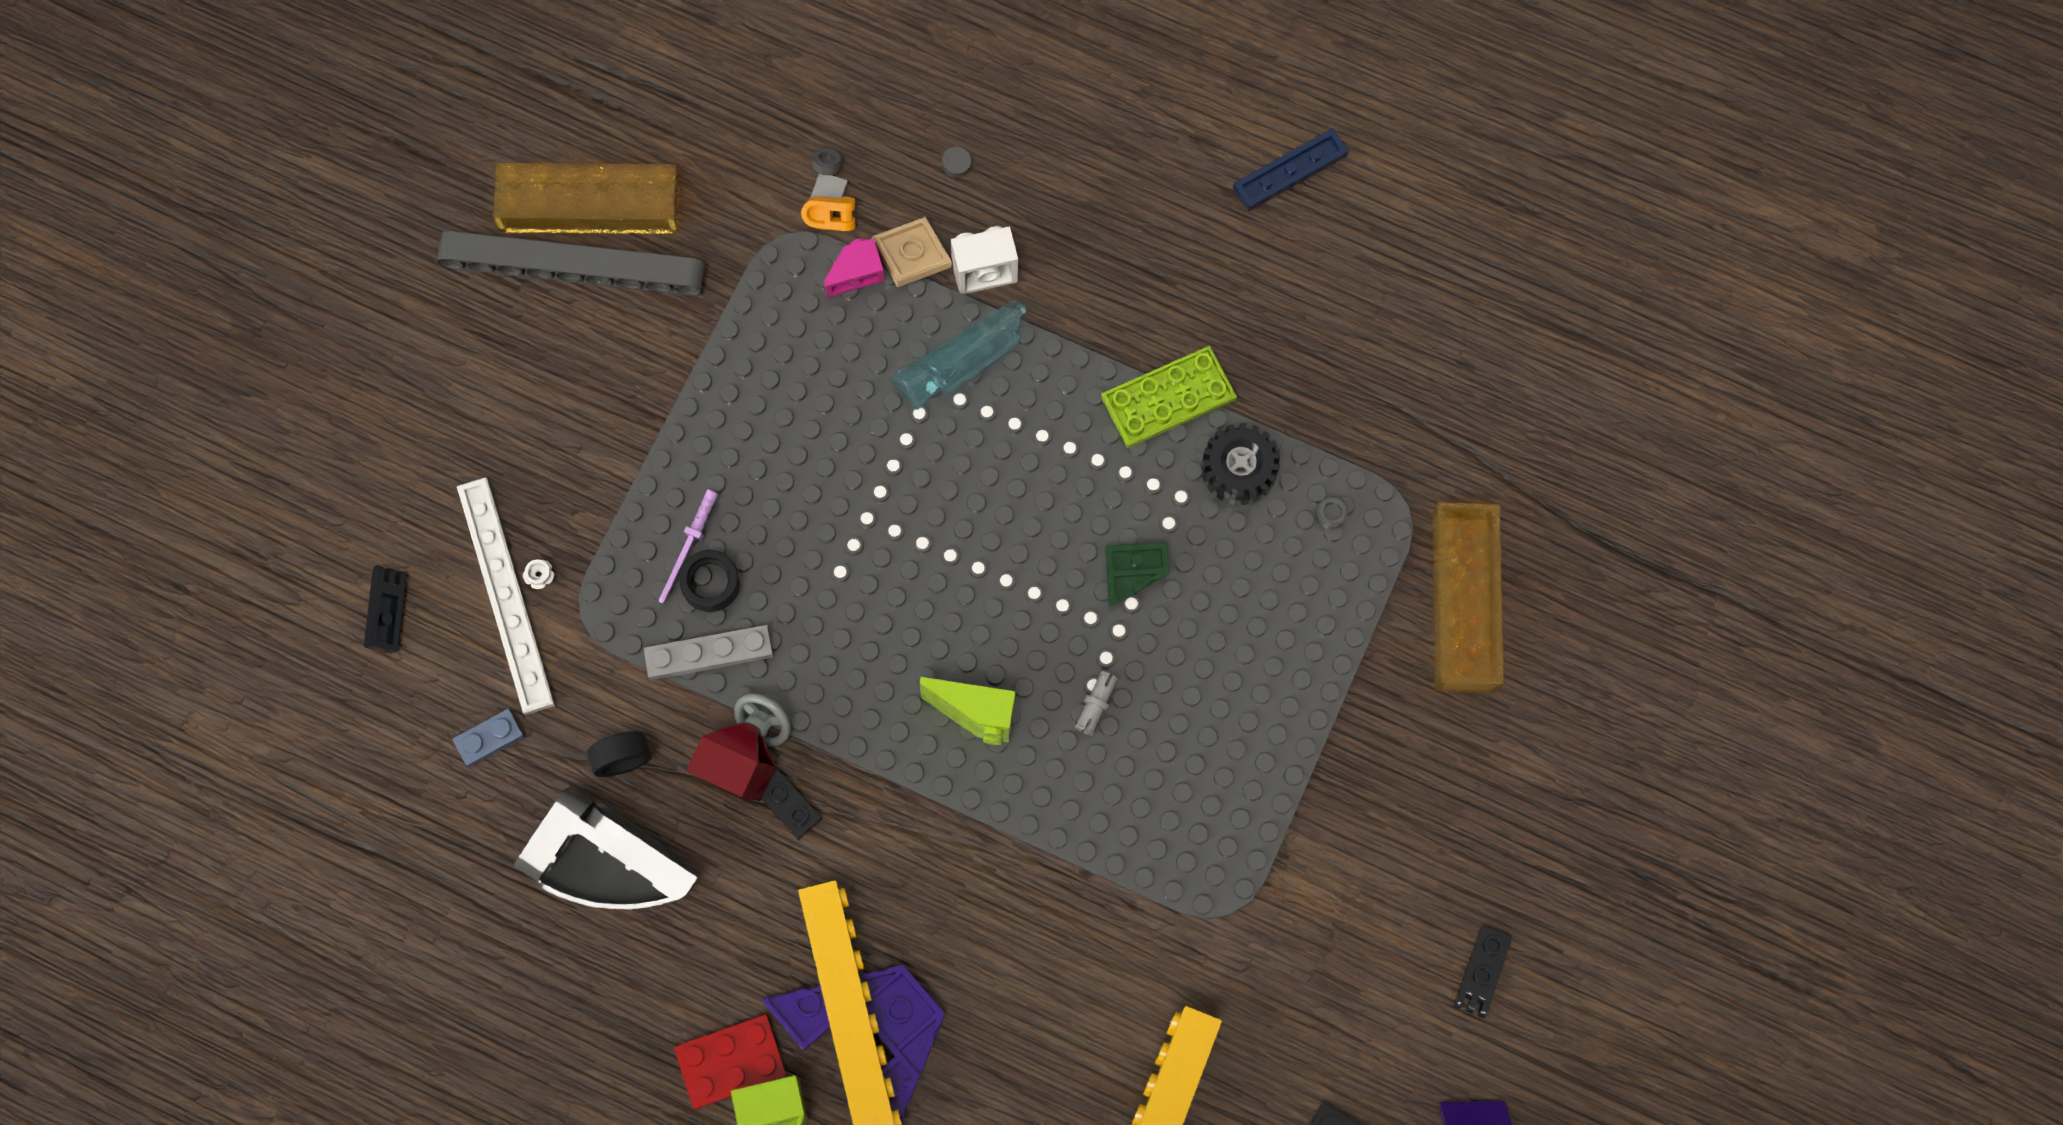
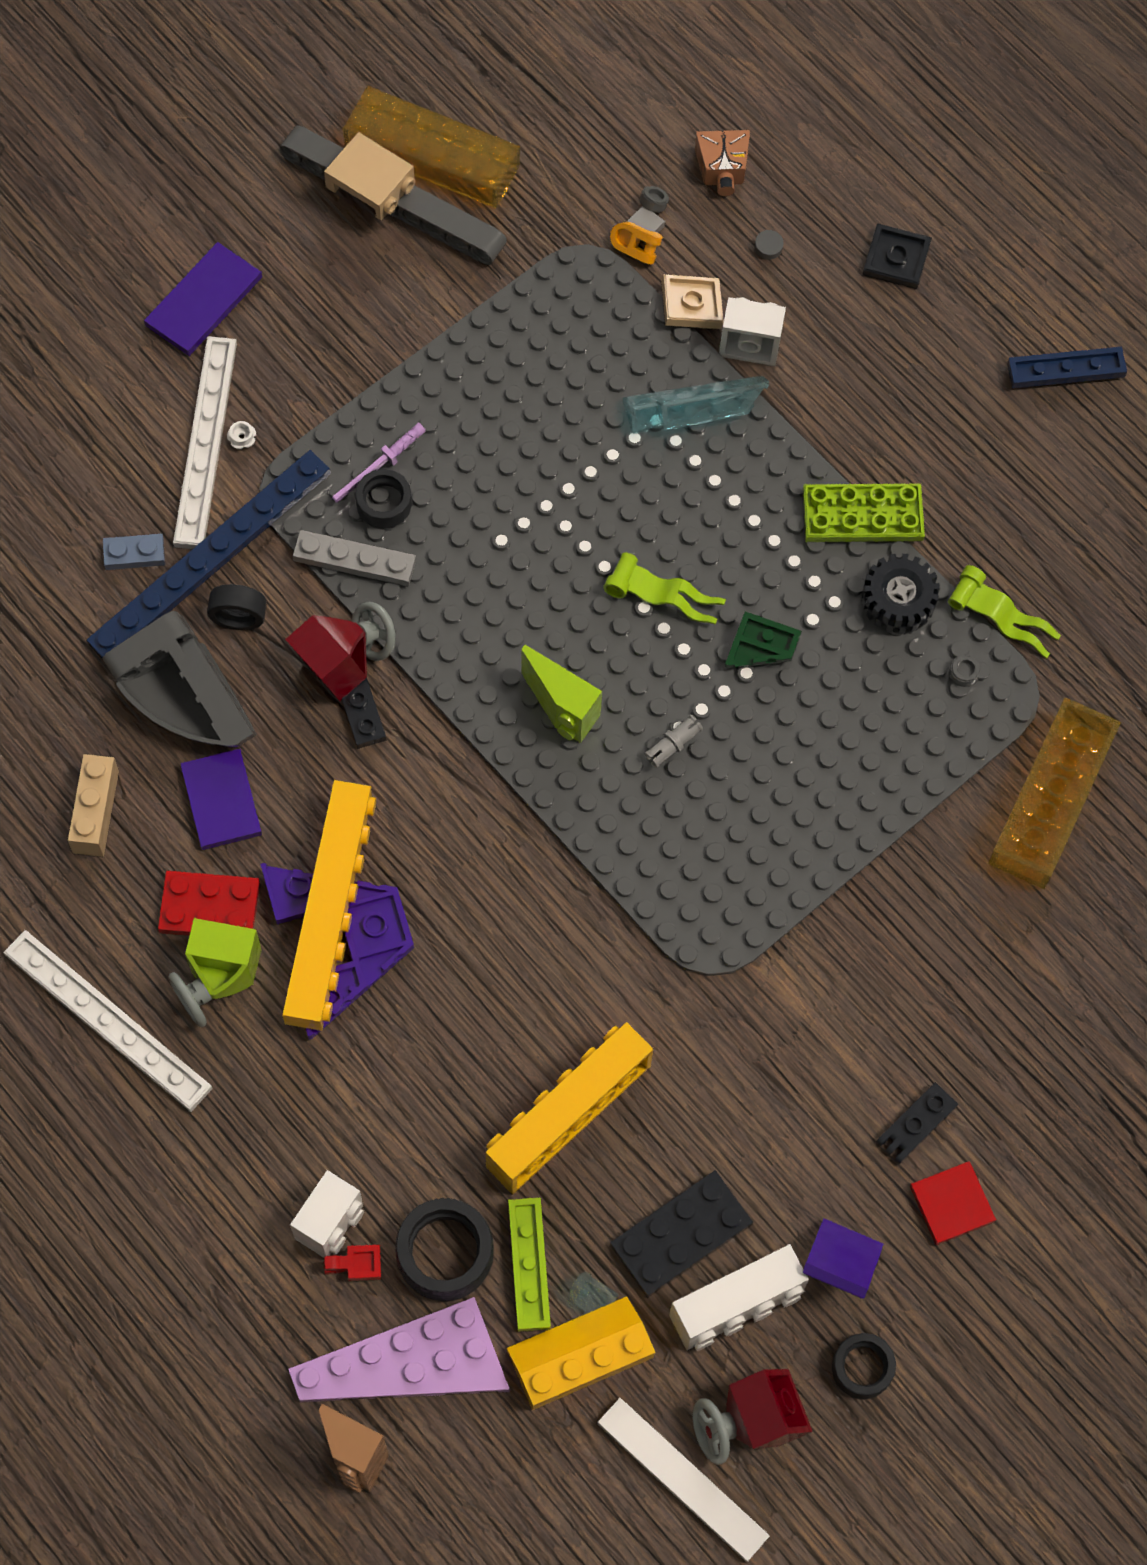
camera: 25 degrees right, 5 degrees down
(385, 610) = (97, 410): black hinge -> none
(433, 448) = (203, 298): none -> dark purple tile
(544, 256) = (371, 174): none -> tan panel
(565, 713) = (212, 552): none -> dark blue plate
(572, 1015) = (93, 805): none -> tan brick
(691, 951) = (221, 799): none -> dark purple tile
(855, 268) = (633, 293): dark pink slope -> none
(874, 93) = (722, 158): none -> nougat torso
(1011, 559) = (656, 590): none -> lime flag
(1082, 123) = (897, 256): none -> black tile
(1334, 437) = (998, 607): none -> lime flag
(1549, 1033) = (952, 1203): none -> red tile

